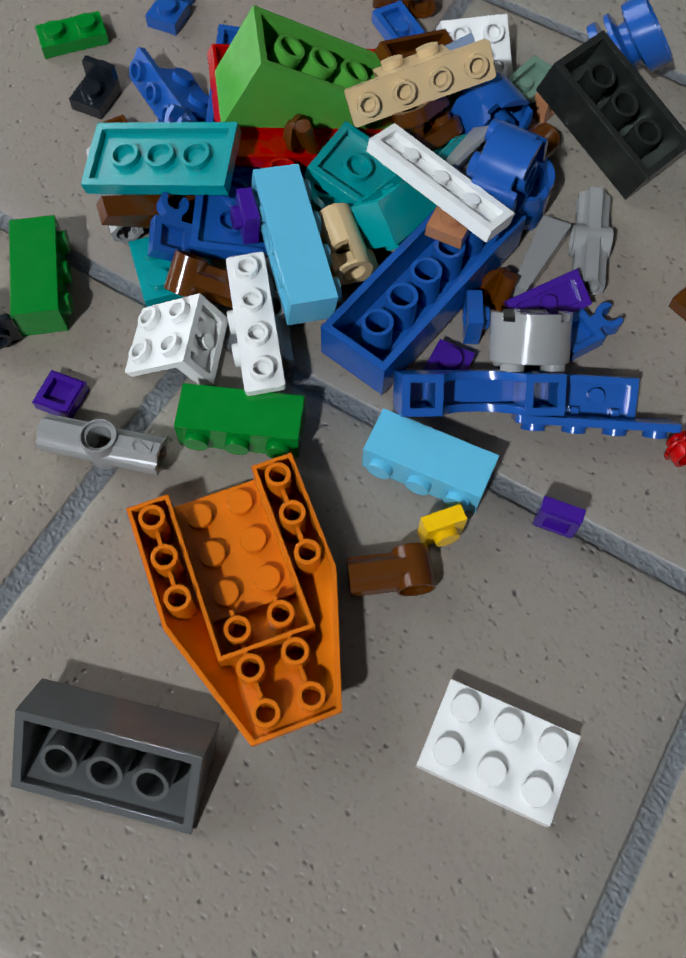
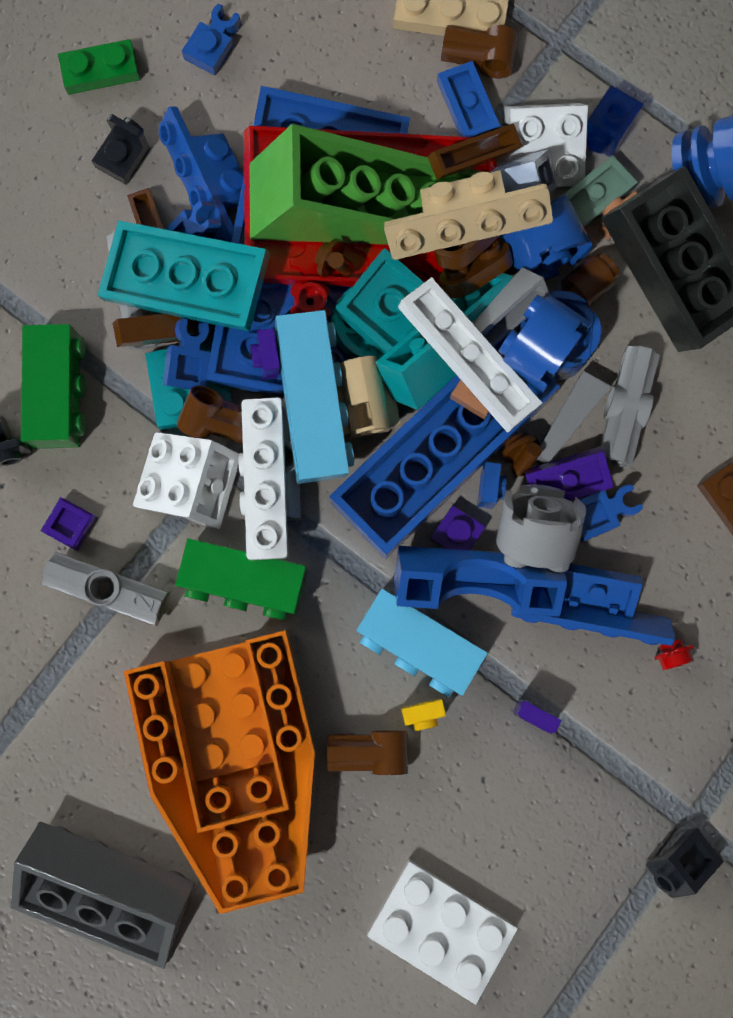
camera: 10 degrees right, 15 degrees up
(529, 31) = (611, 121): none -> clear blue brick

